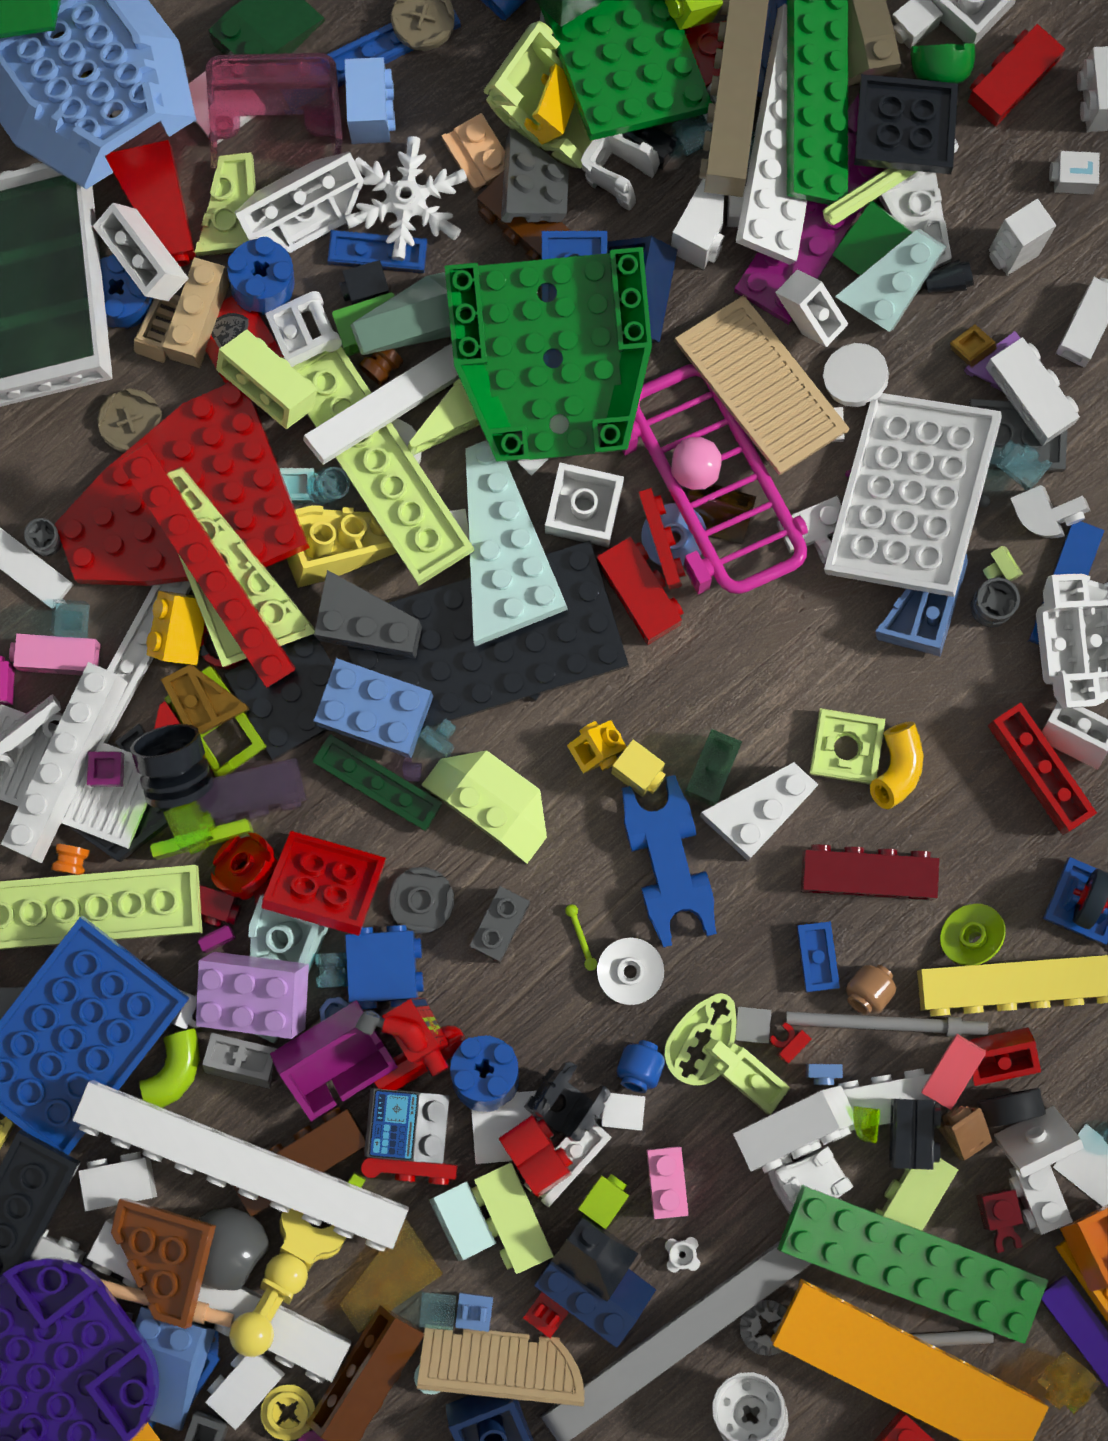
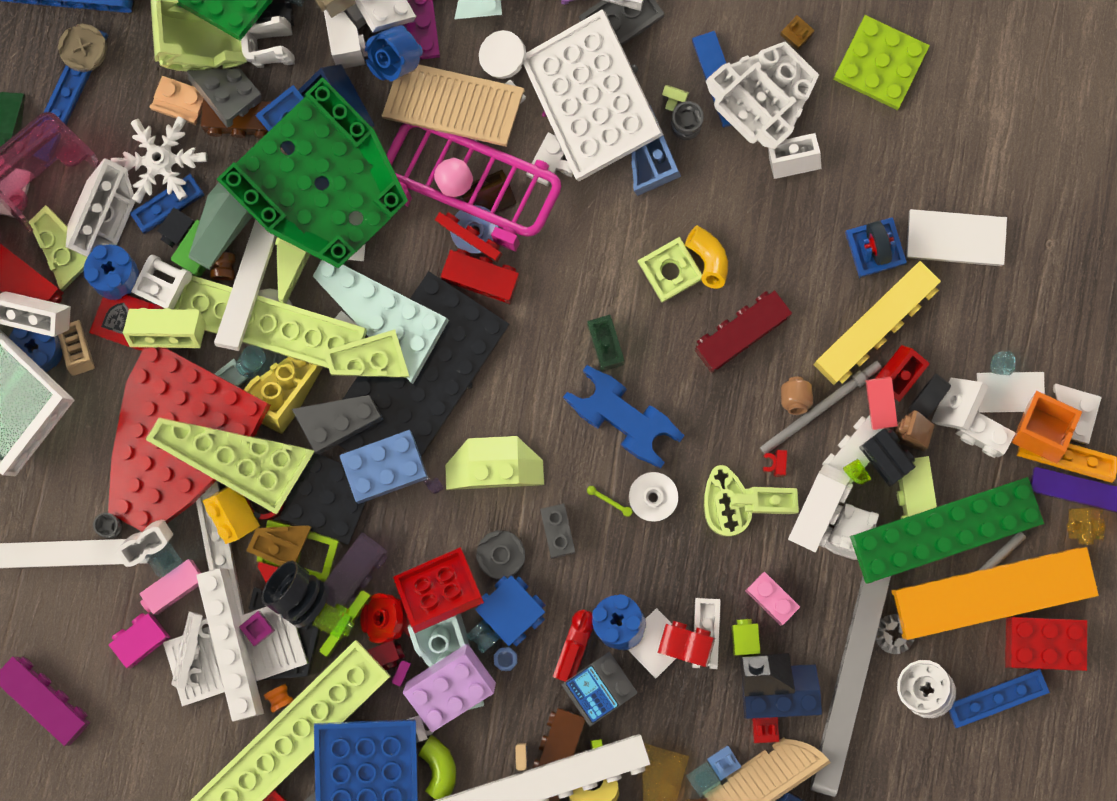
camera: 35 degrees left, 0 degrees up
(64, 586) = (147, 542): none -> white brick
(127, 418) = (100, 417): dark tan tile -> none
(196, 312) = (90, 323): tan brick -> none
(206, 564) = (219, 462): red plate -> none
(239, 1060) = (473, 731): light grey hinge -> none
(267, 1128) = (521, 756): none -> tan tile
(335, 1053) = (526, 677): magenta piece -> none
(369, 100) = (91, 119): light blue brick -> none
(377, 782) = (420, 508): dark green plate -> none
(408, 1170) = (620, 714): red plate -> none
(414, 1031) = (559, 630): red torso -> none
(439, 739) = (435, 454): clear light blue tile -> none
(451, 580) = (370, 356): none -> yellowish green wing
(462, 1221) = (675, 717): light aqua hinge -> none
(512, 1218) = (702, 691): yellowish green brick -> none
(553, 107) = (203, 38): yellow hinge -> none
(578, 1107) = (689, 600): black piece -> none
(584, 504) = (408, 253): white brick -> none
(597, 746) = (529, 384): yellow brick -> none
(623, 1112) = (713, 580): white brick -> none
(639, 769) = (564, 377): light yellow brick -> none
(640, 1066) = (703, 546): blue head -> none
(689, 1261) = (821, 632): white plate -> none
(739, 281) = (392, 53): none -> blue brick
(753, 1025) = (747, 470): light grey tile -> none
(759, 810) = (651, 346): white wedge -> none
(811, 308) = (446, 36): white brick -> none
(818, 956) = (752, 401): blue plate -> none
(824, 1073) = (809, 465): medium blue plate -> none
(967, 924) = (819, 318): lime dish -> none
(1000, 1213) = (971, 461): dark red brick -> none
(1022, 464) = (638, 29): clear light blue brick -> none
(1041, 518) = (673, 51): white brick -> none
(1042, 769) = (790, 193): red brick -> none

